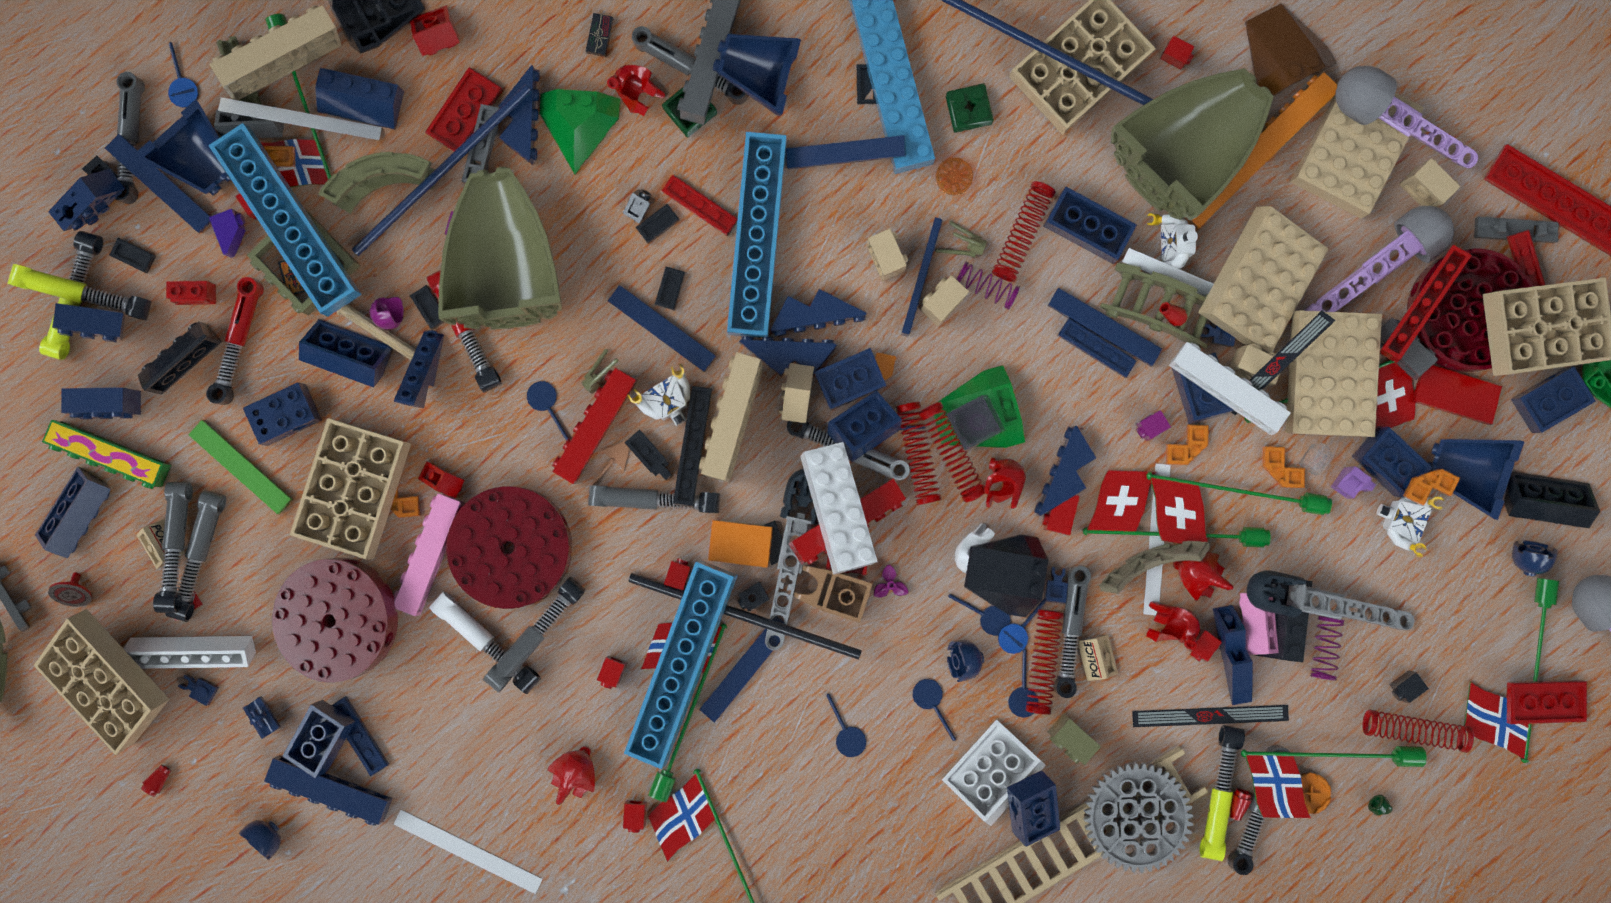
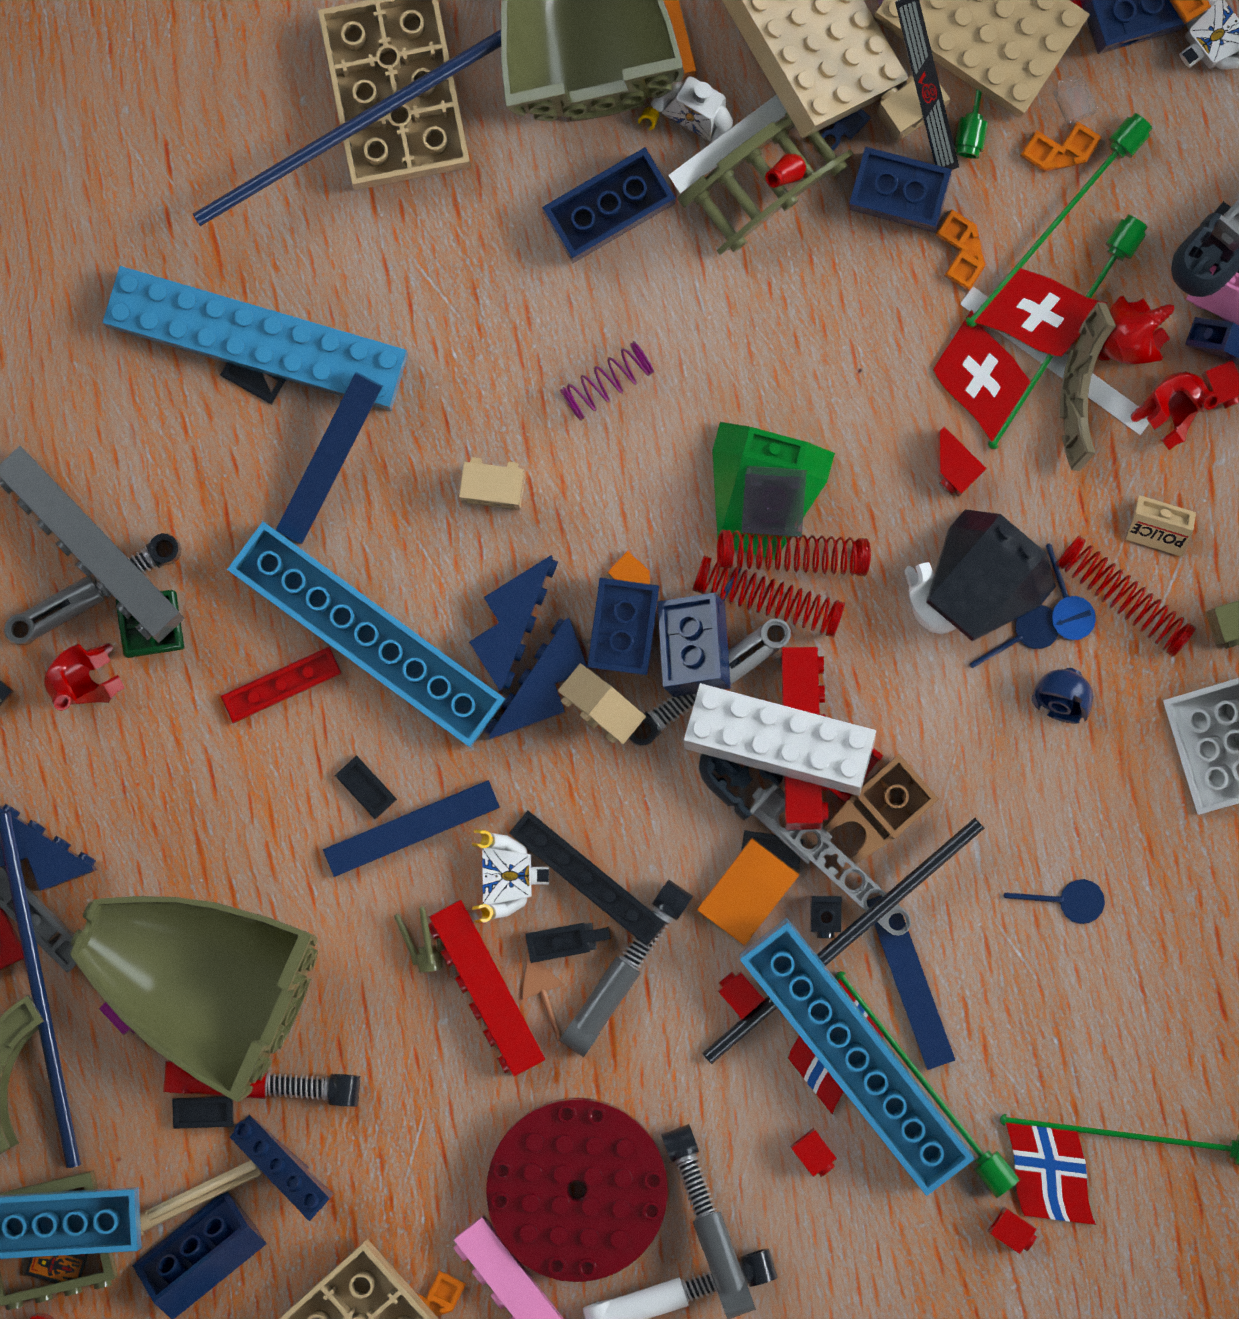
camera: 65 degrees left, 0 degrees up
(387, 312) = (179, 1169): magenta hair -> none
(441, 479) = (437, 1227): red slope -> none
(542, 397) = (407, 1035): dark blue piece -> none
(573, 771) = (914, 1276): red piece -> none
(578, 121) = (78, 777): green wedge -> none
(638, 205) = (235, 763): bracket -> none
(657, 223) = (272, 753): black tile -> none
(732, 417) = (589, 807): tan brick -> none
(758, 66) = (155, 505): dark blue cone -> none
(882, 589) = (900, 726): magenta plant -> none
(921, 277) = (546, 457): dark blue tile -> none
(928, 695) = (1081, 768): dark blue piece -> none
(943, 302) = (594, 446): tan brick -> none
(954, 176) = (440, 337): clear orange wheel -> none
(962, 118) = (373, 282): dark green brick -> none
(975, 243) = (544, 364): olive plant -> none
(1005, 272) = (524, 238): red piece -> none
(1013, 481) = (870, 495): red piece -> none
(1018, 697) = (1151, 654): dark blue piece -> none
(1056, 590) = (1044, 526): dark blue plate -> none
(1064, 478) = (912, 432): dark blue slope -> none
(1072, 629) = (1105, 536): piece -> none
(1097, 348) = (769, 289): dark blue tile -> none
(1104, 327) = (749, 263): dark blue tile -> none
(1152, 425) = (910, 280): magenta brick -> none
(1230, 388) = (922, 158): white brick -> none
(1351, 481) = (1129, 73): medium lavender brick -> none

